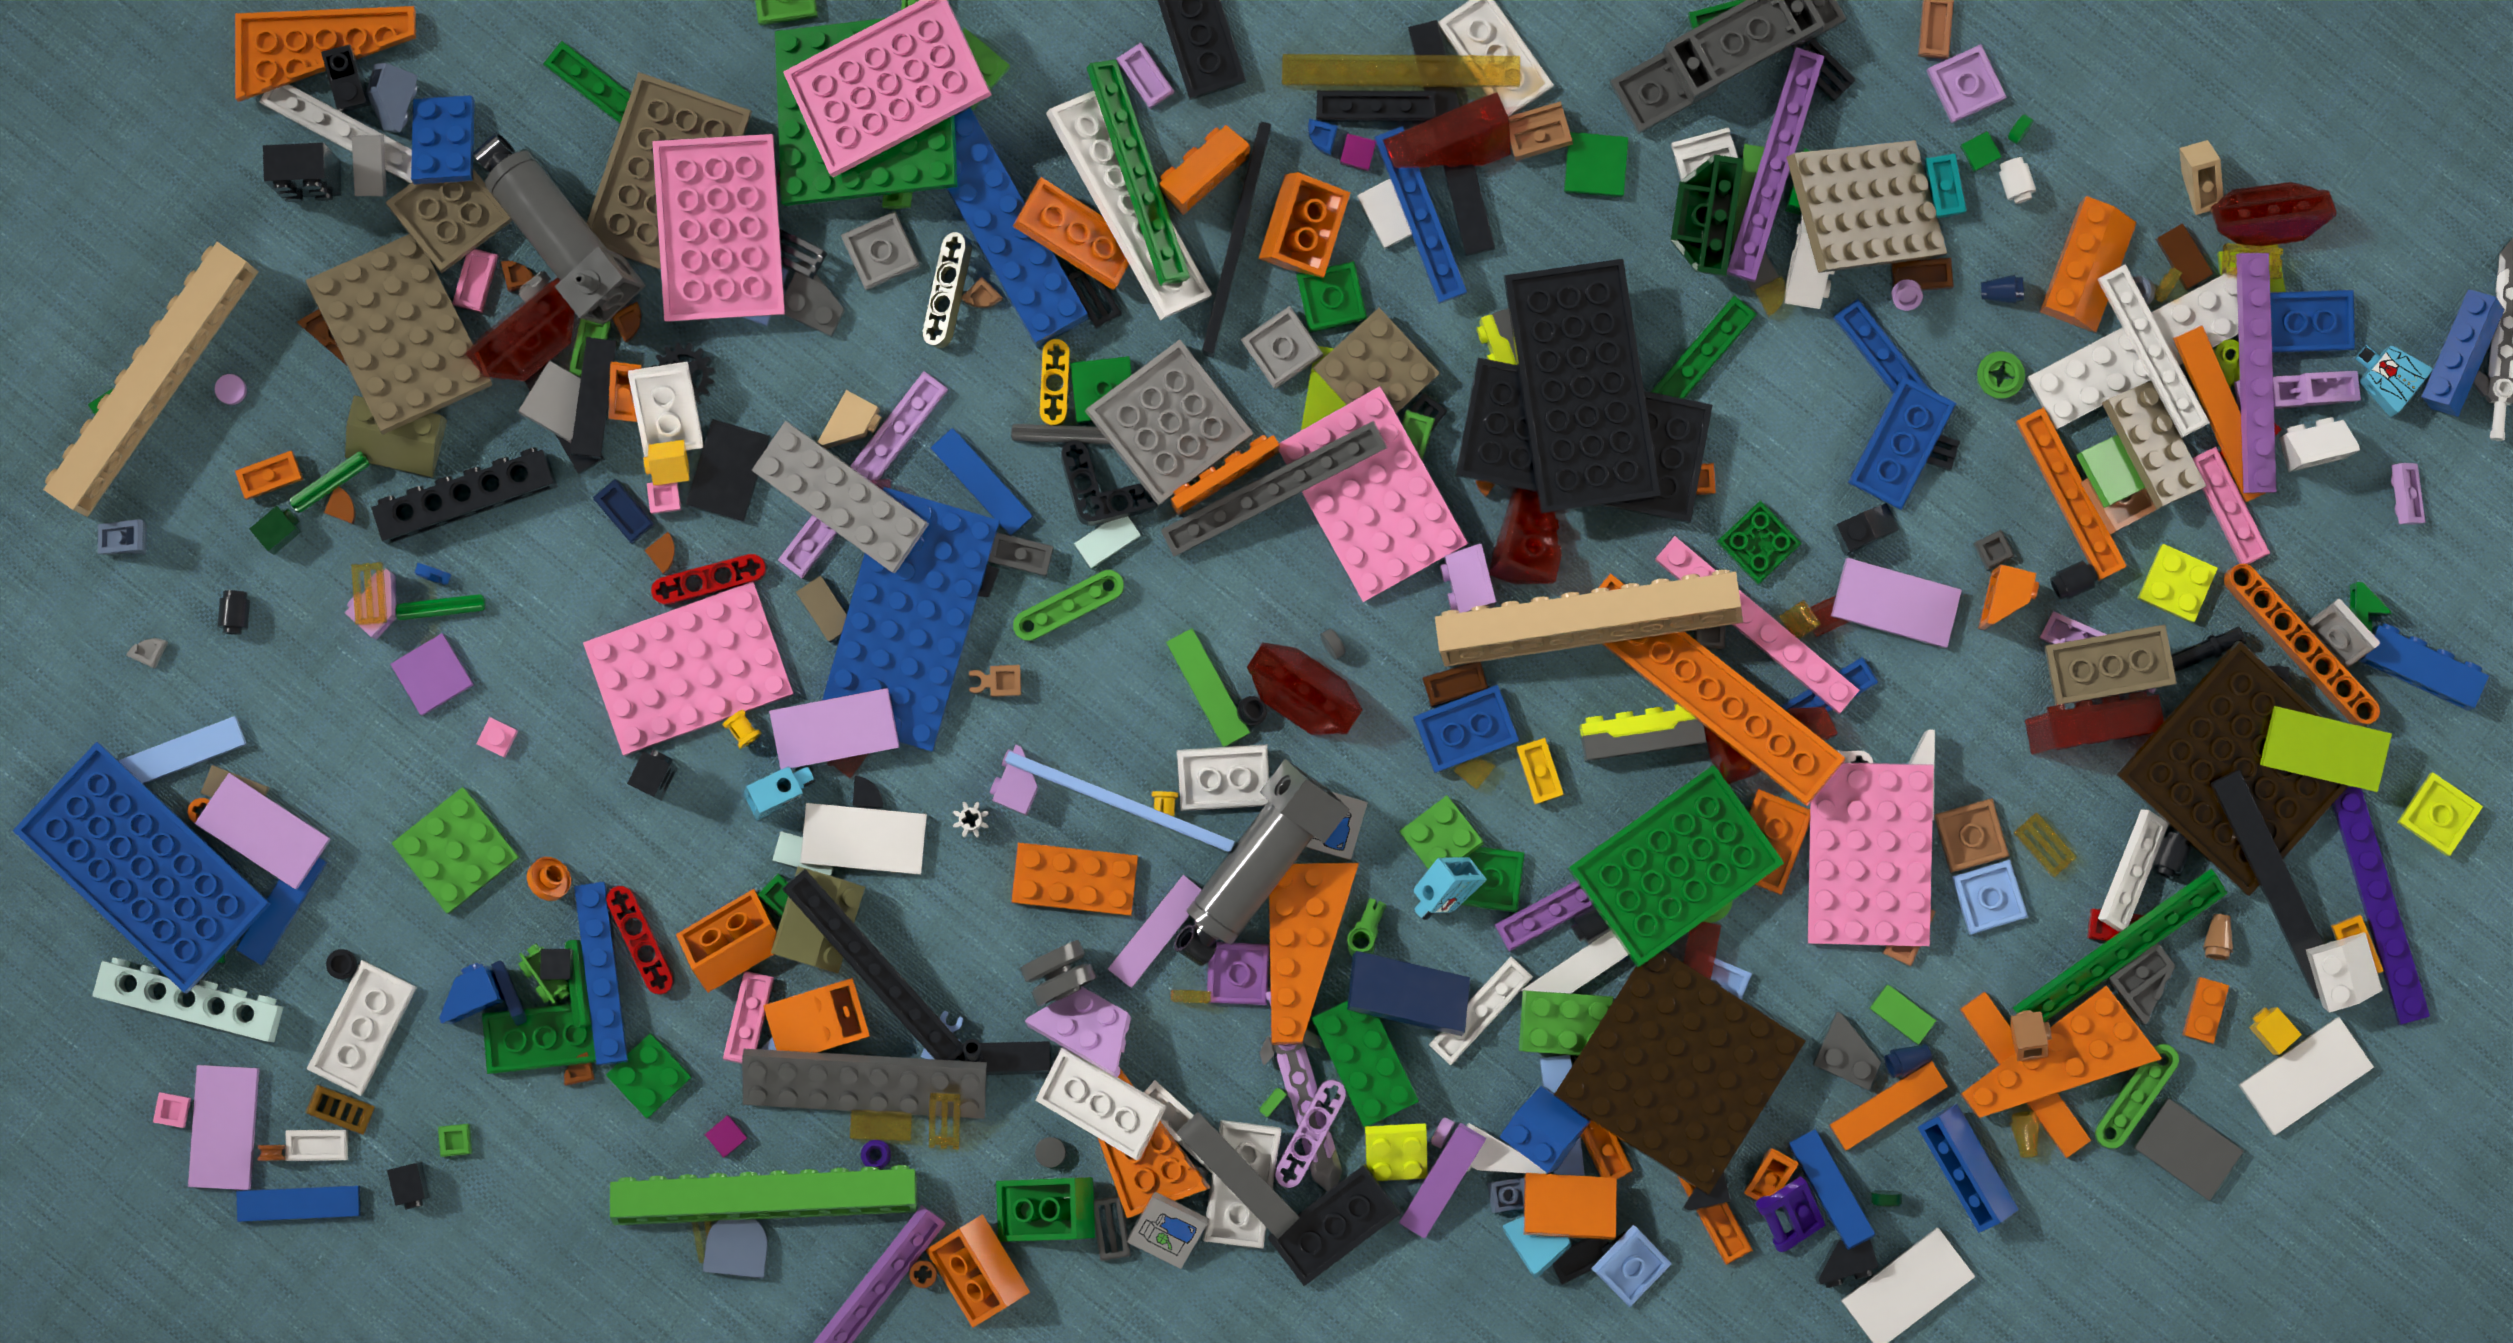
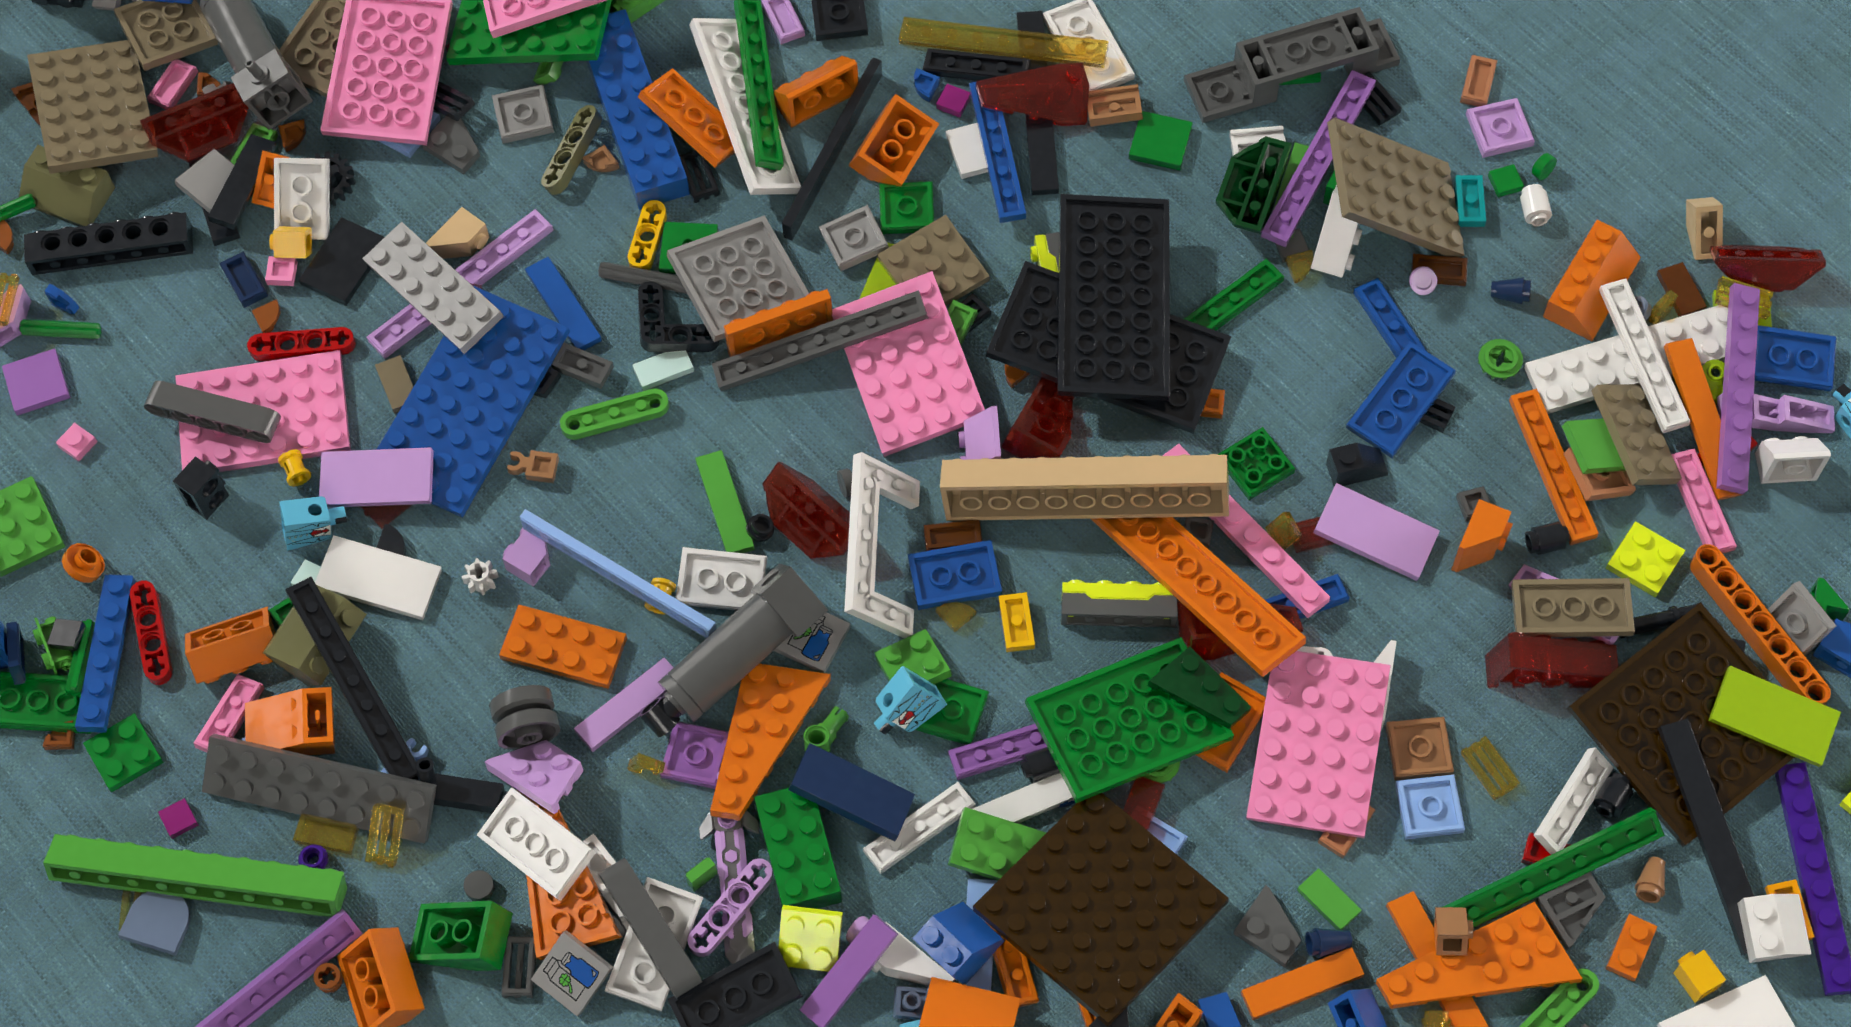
camera: 15 degrees right, 20 degrees down
(639, 685) = (212, 411): none -> dark grey beam
(1361, 650) = (869, 480): none -> white plate
(1740, 818) = (1200, 686): none -> dark green wing

